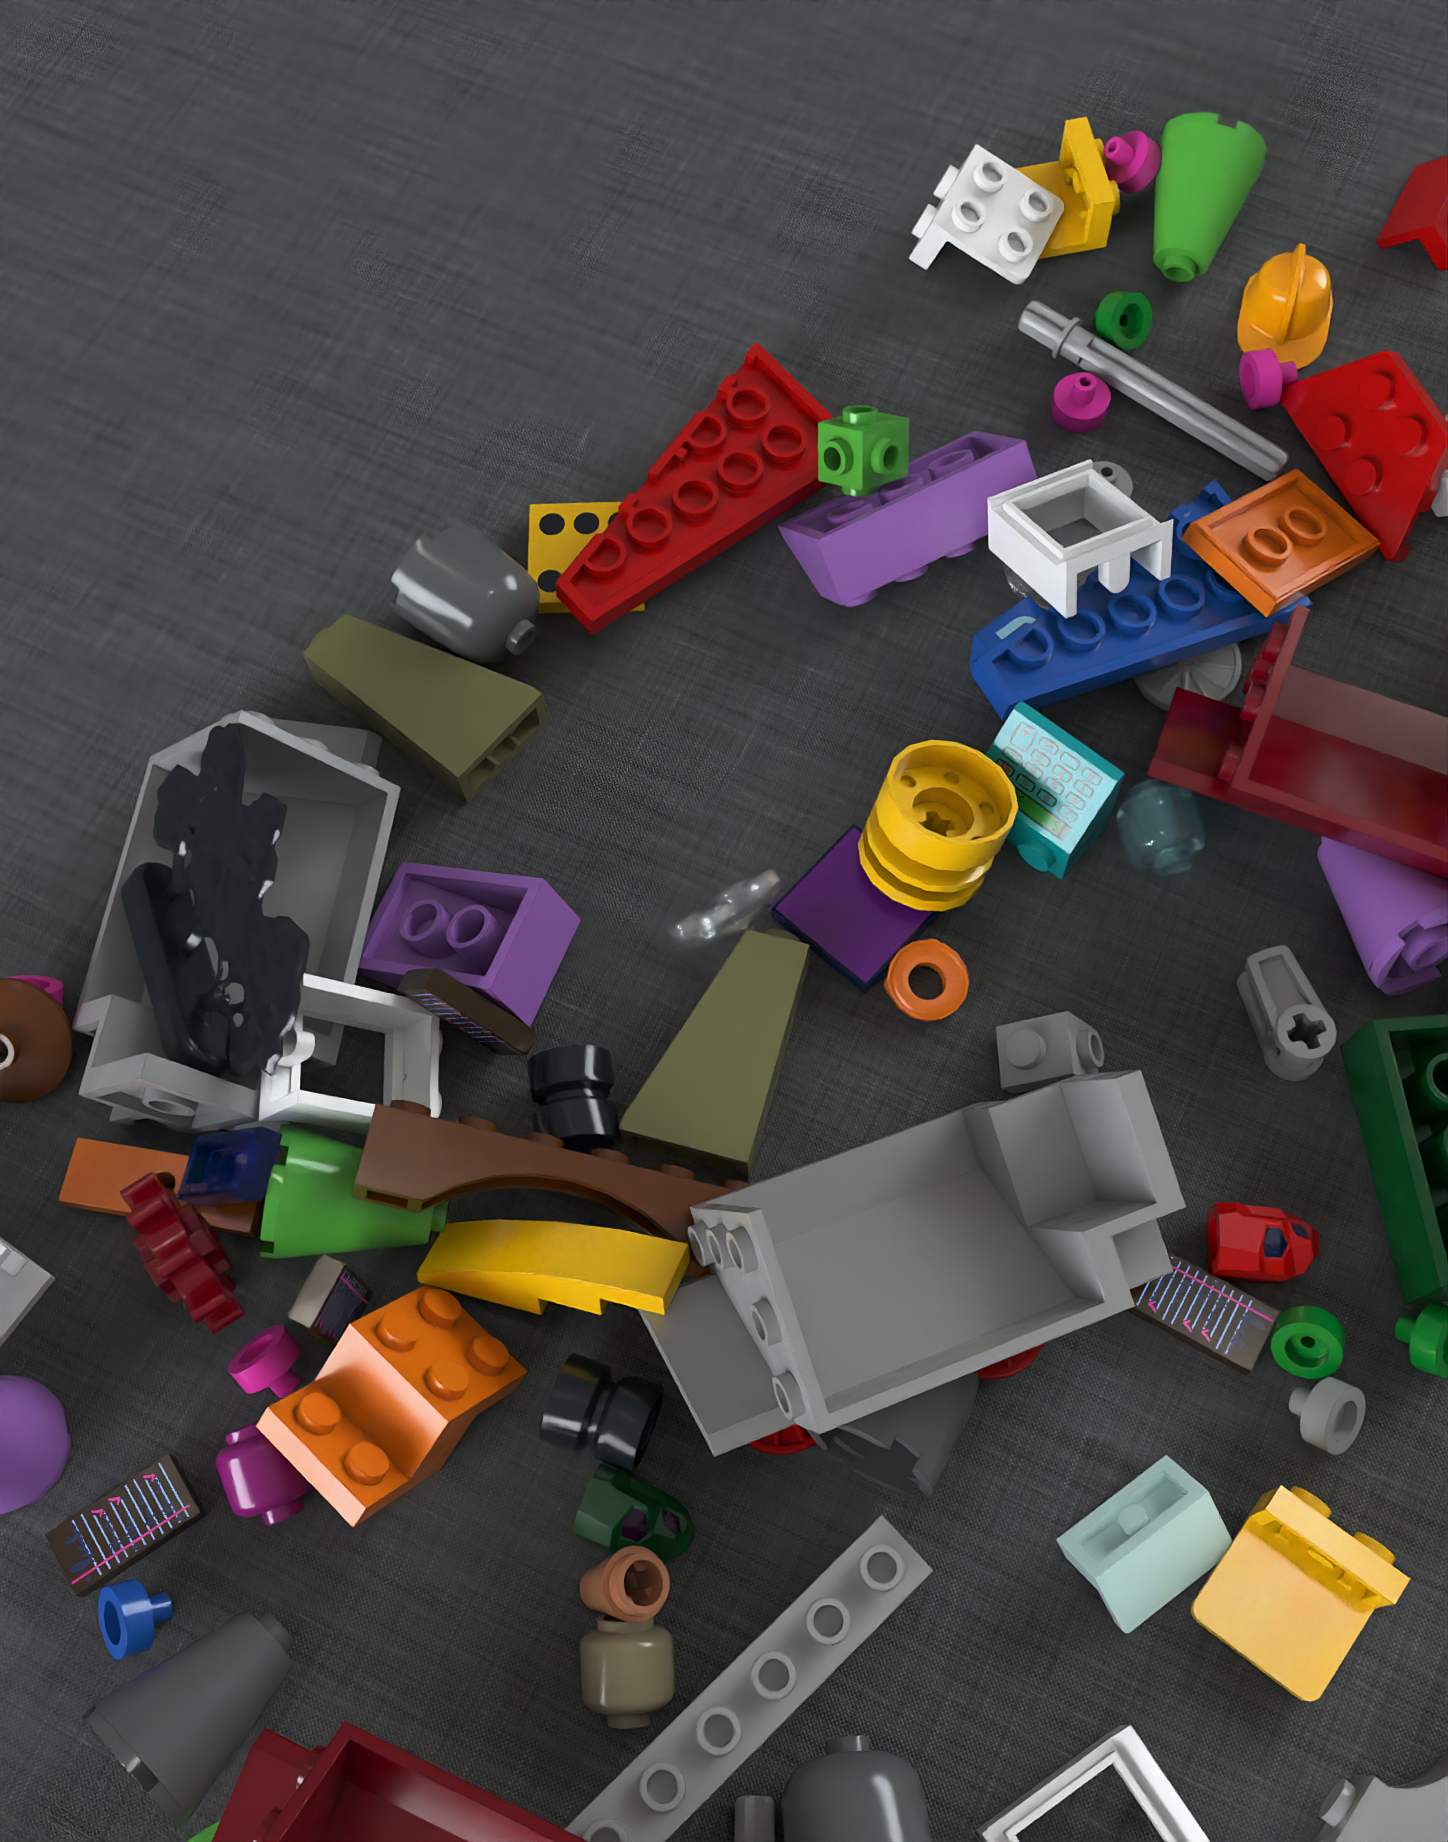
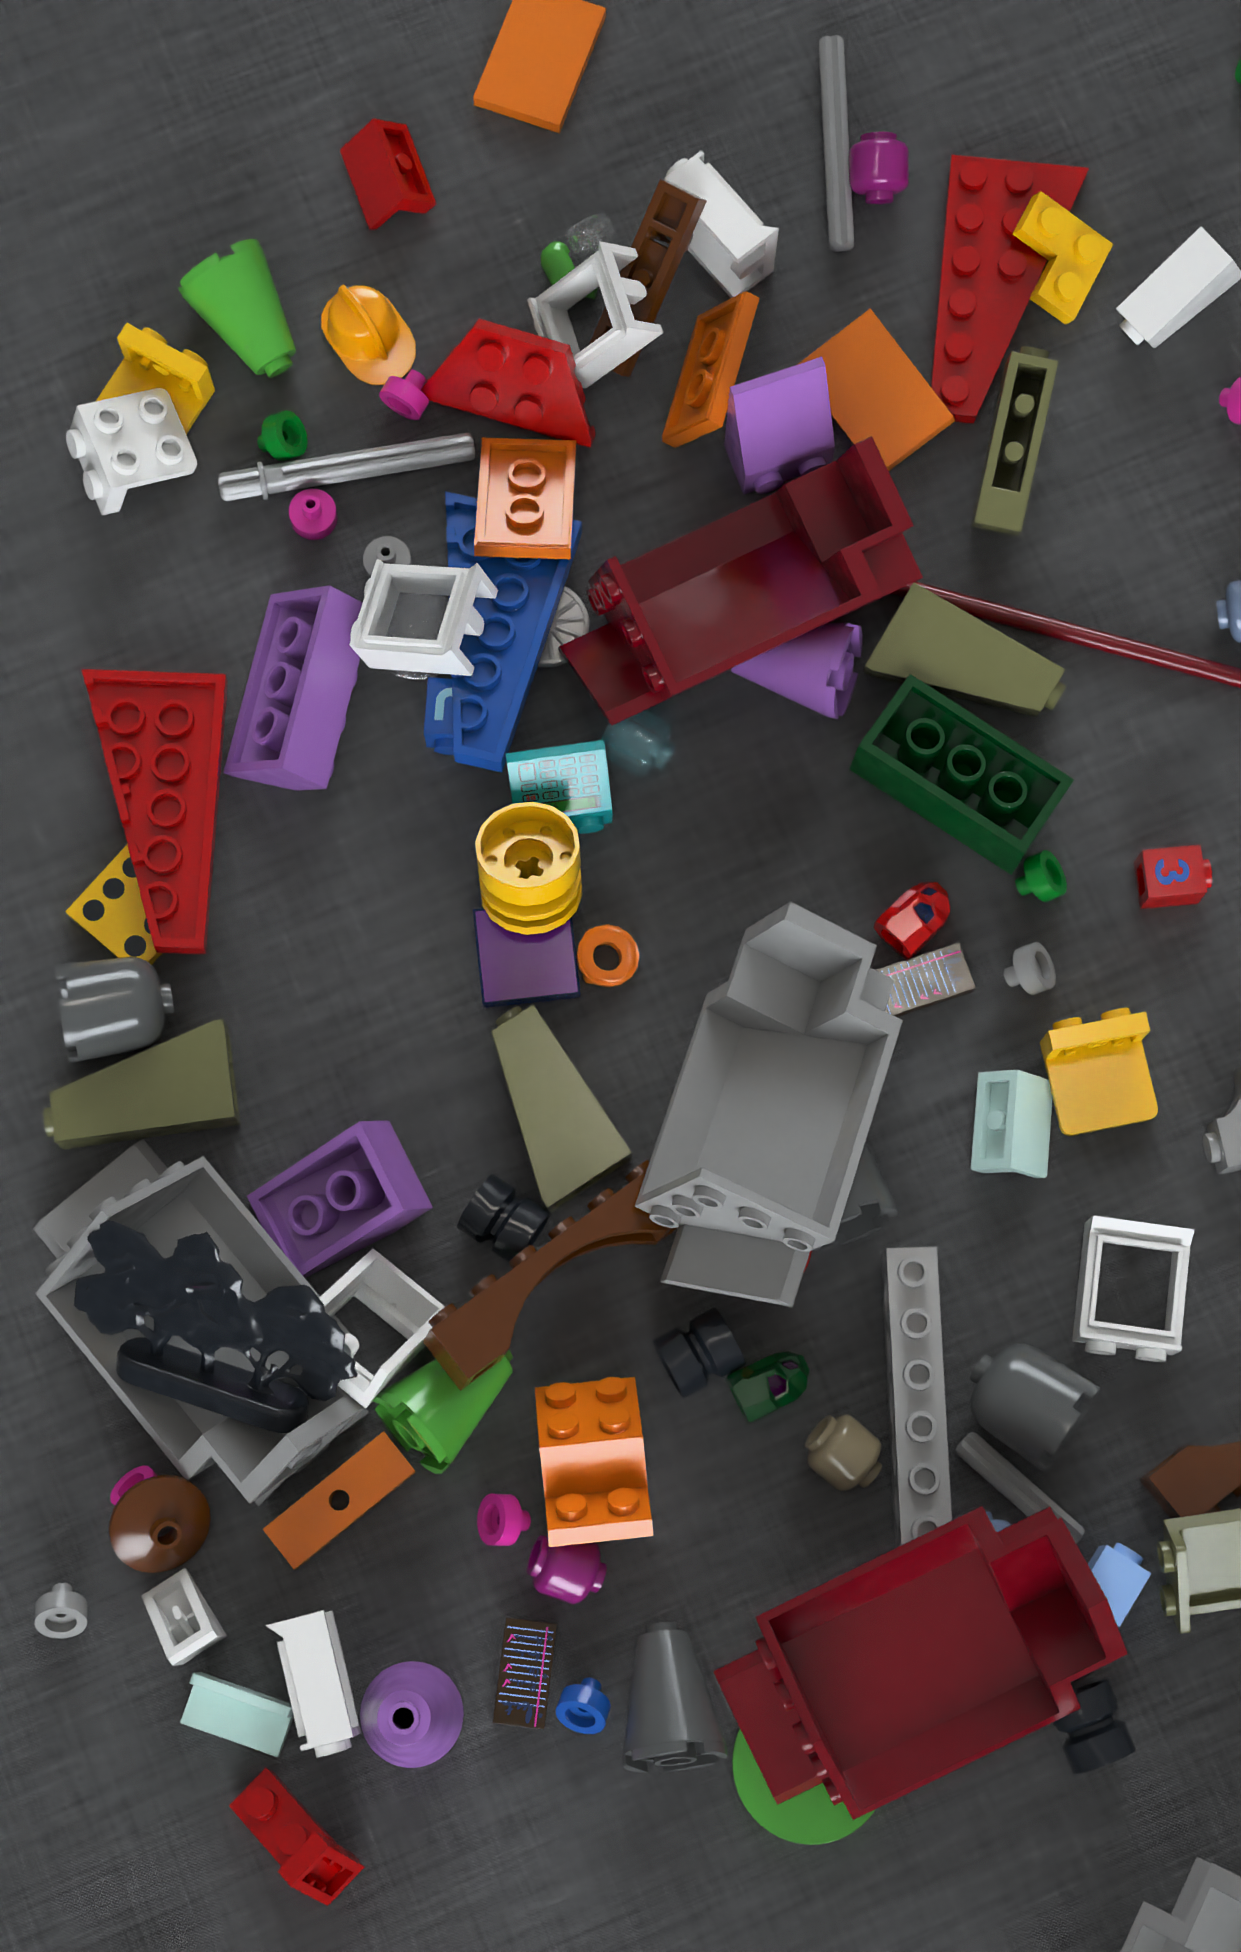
camera: 55 degrees left, 10 degrees up
(182, 1253) = (402, 1515): dark red gear -> none
(230, 1167) = (378, 1447): clear blue tile -> none
(330, 1301) = (507, 1453): tile -> none
(467, 1011) = (396, 1234): dark brown tile -> none
(555, 1262) = (592, 1309): yellow slope -> none
(627, 1585) = (804, 1415): nougat cone -> none
(736, 911) = (470, 1032): clear dish -> none
(862, 449) = (237, 681): bright green brick -> none
(1046, 1051) = (711, 929): light grey bracket -> none
(1132, 161) = (182, 323): dark pink tile -> none
(1282, 1006) = (802, 777): light grey piece -> none
(1308, 1342) = (987, 943): green tile -> none

